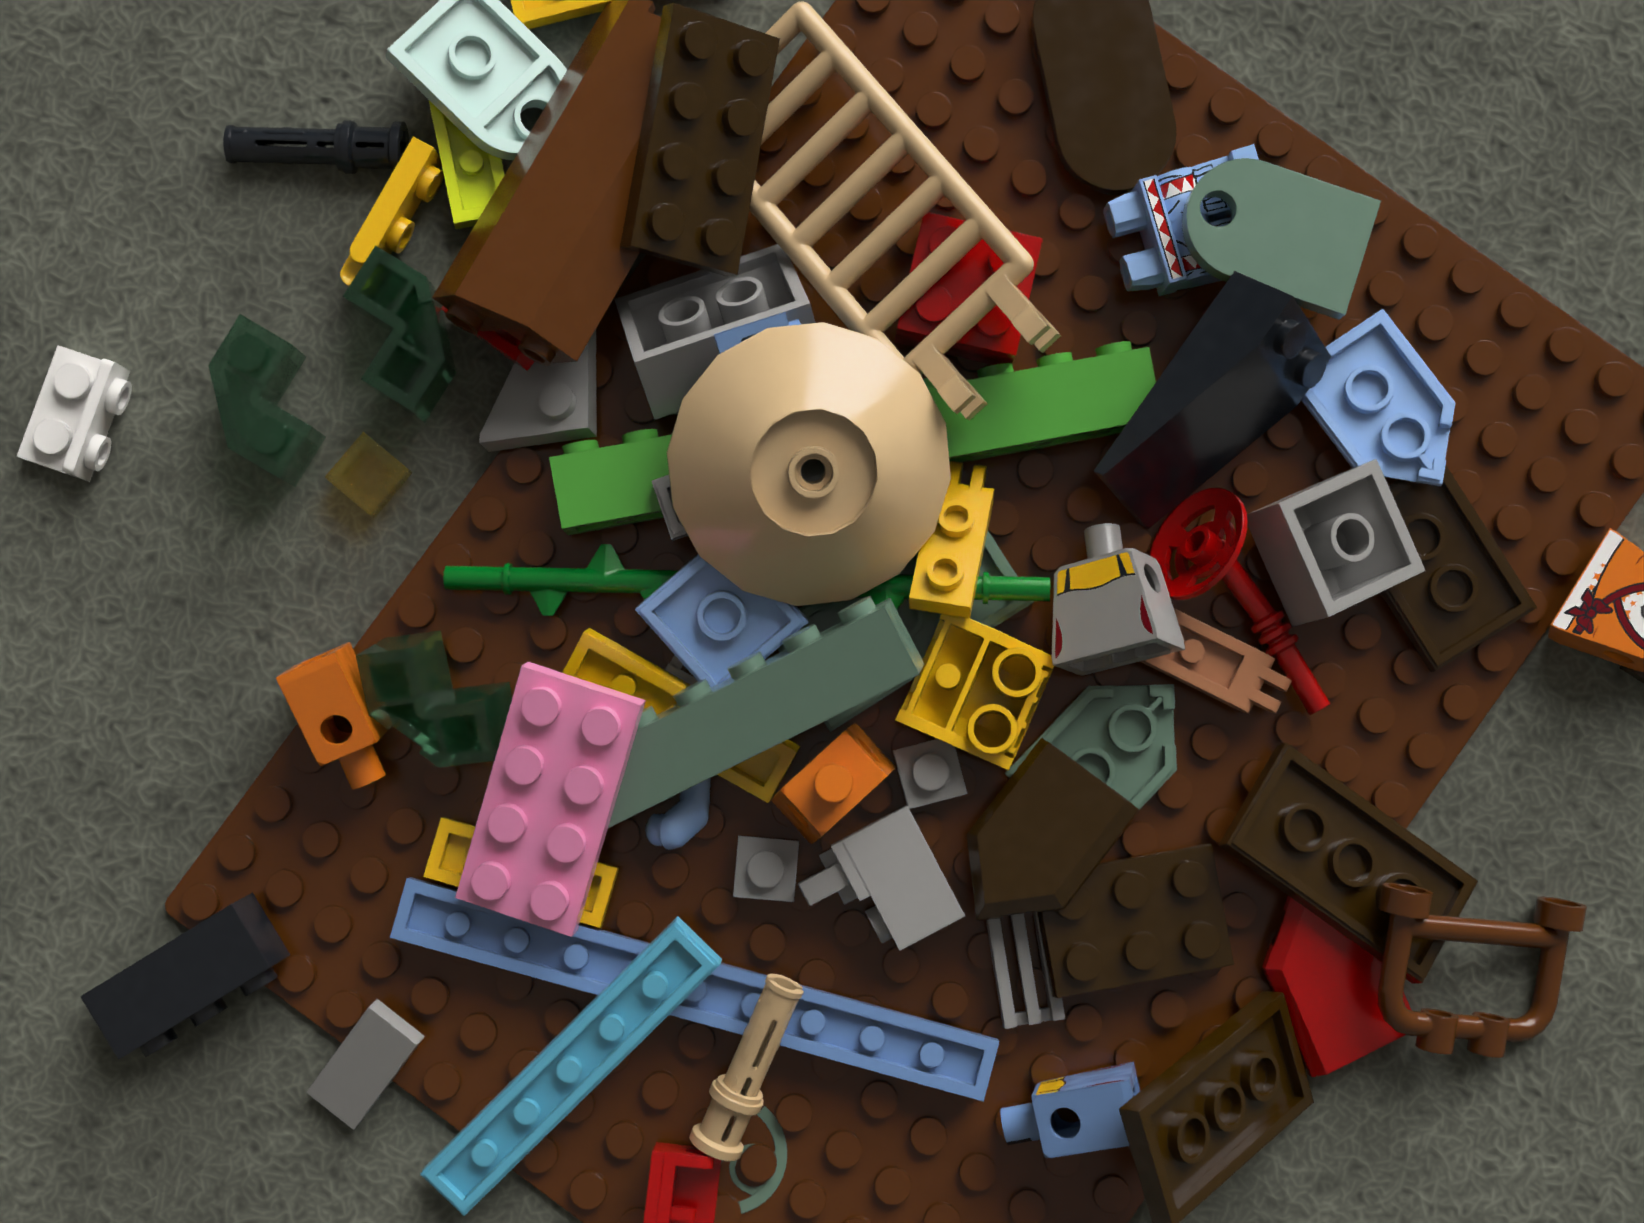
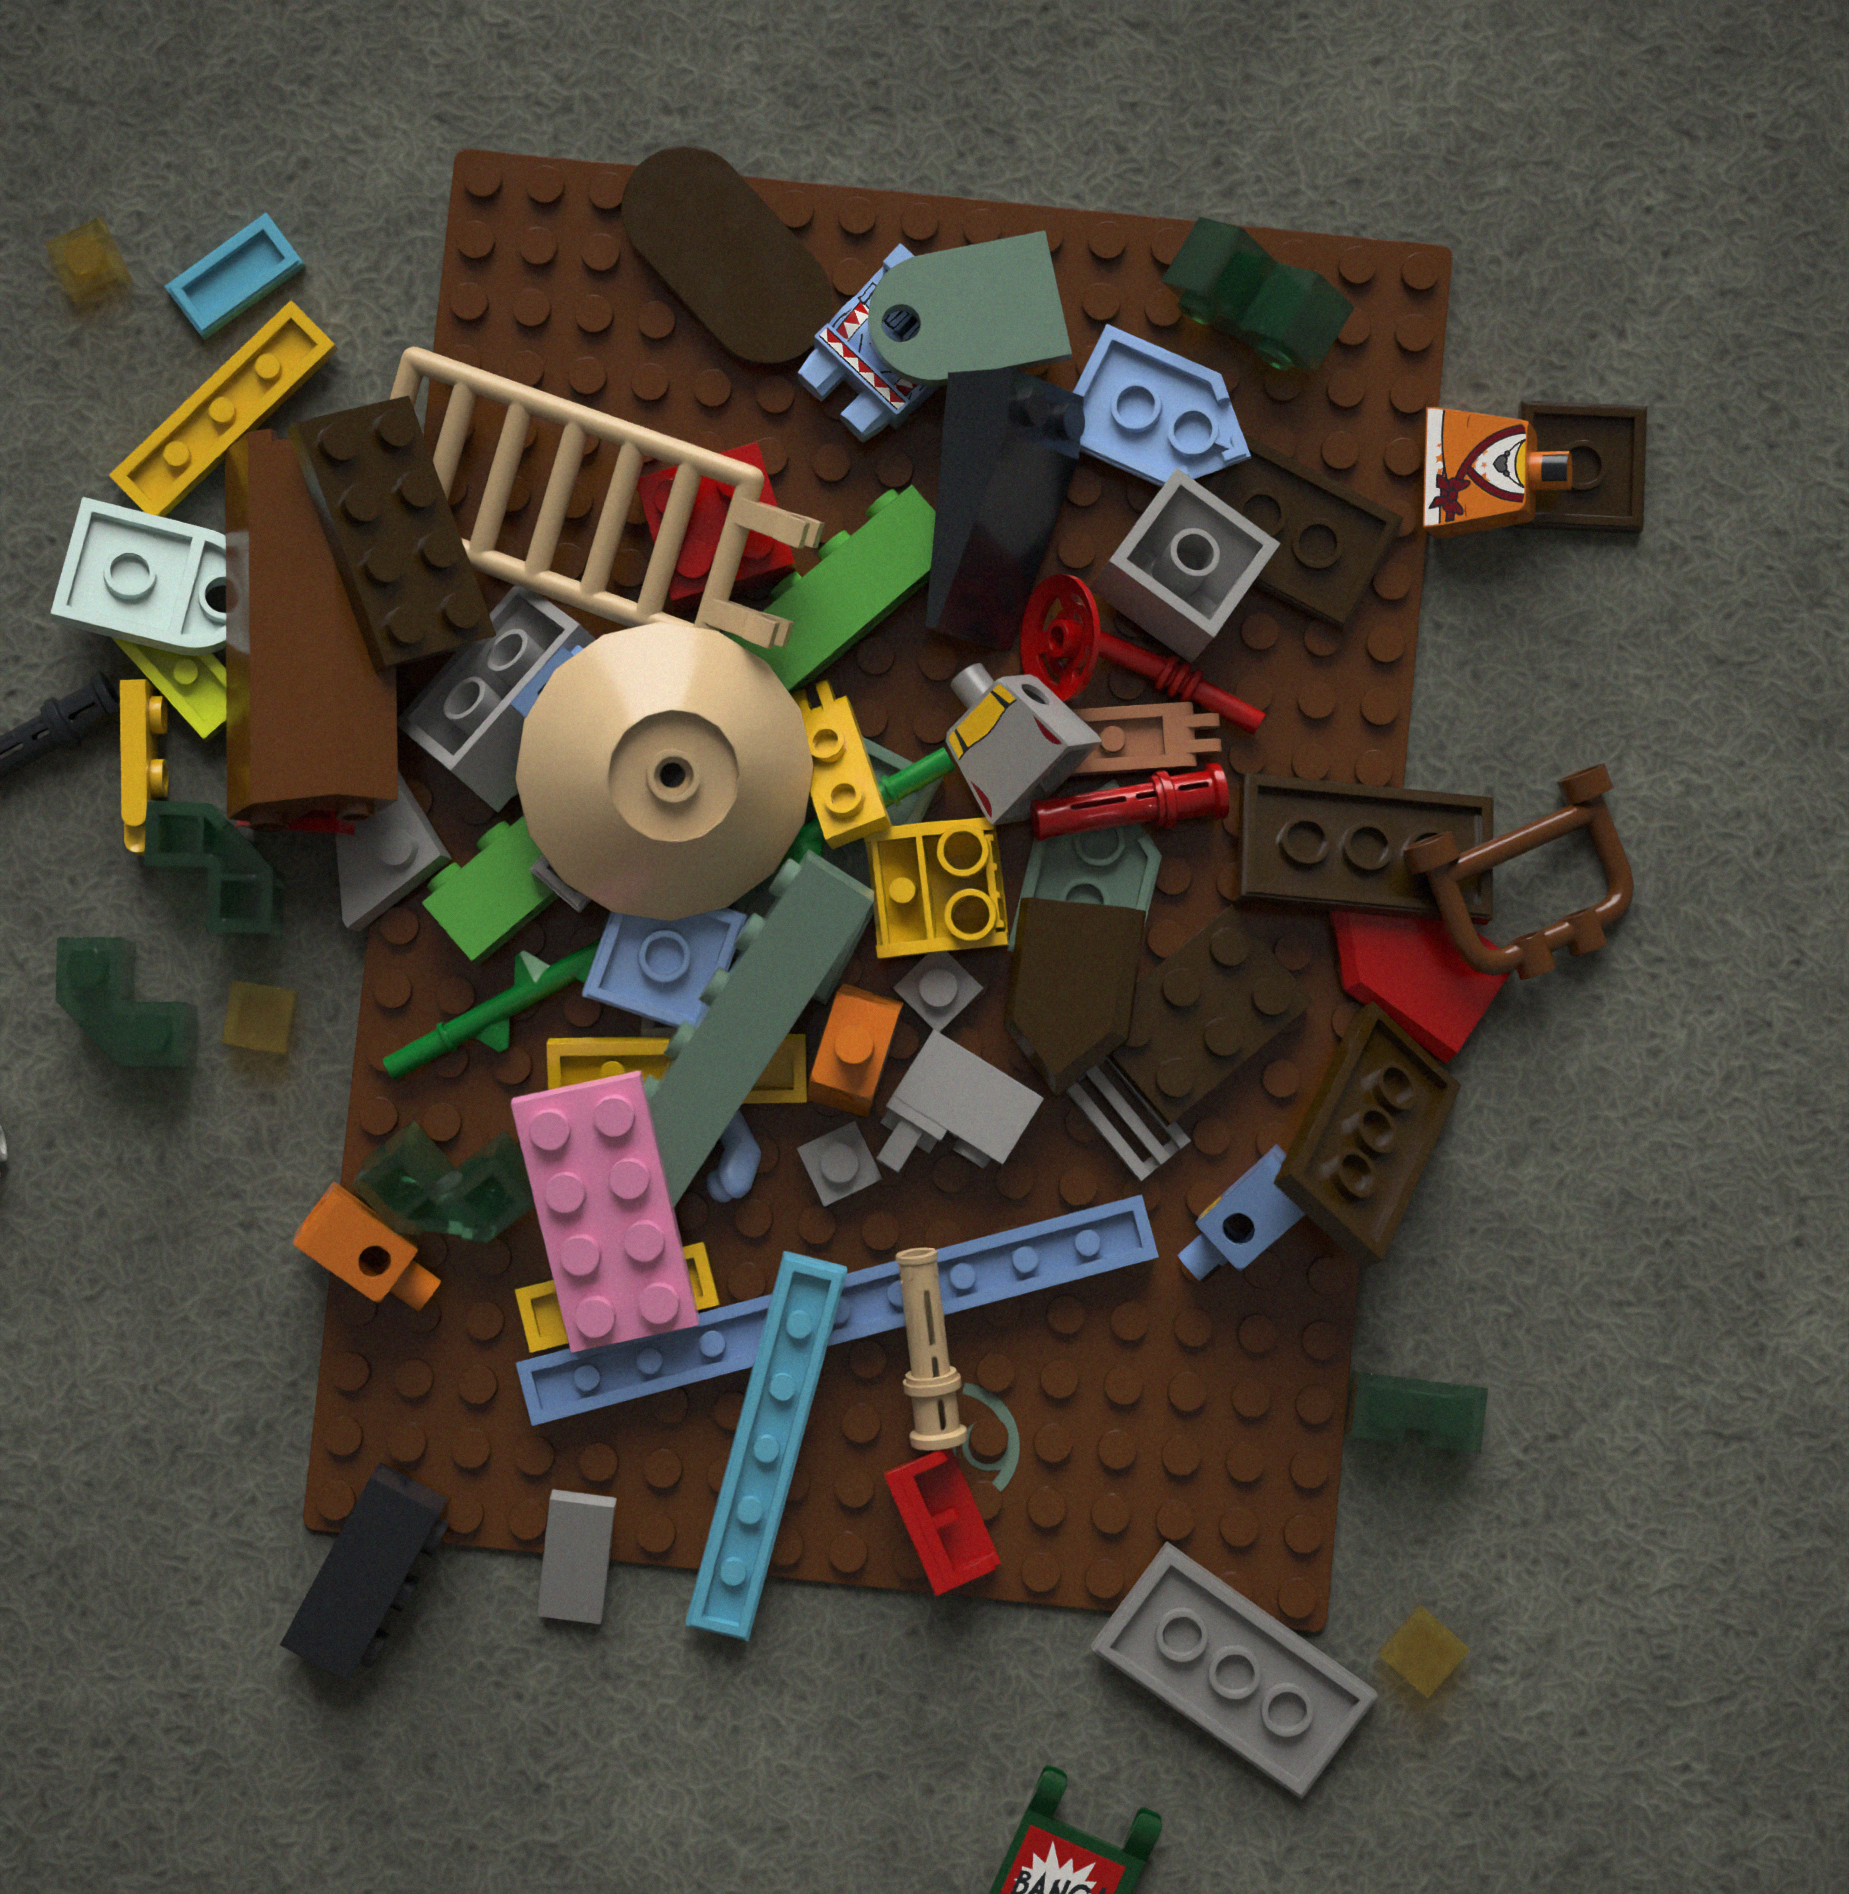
camera: 30 degrees left, 0 degrees up
(1202, 723) = (1159, 800): none -> red pin
(1513, 347) = (1267, 304): none -> clear green brick

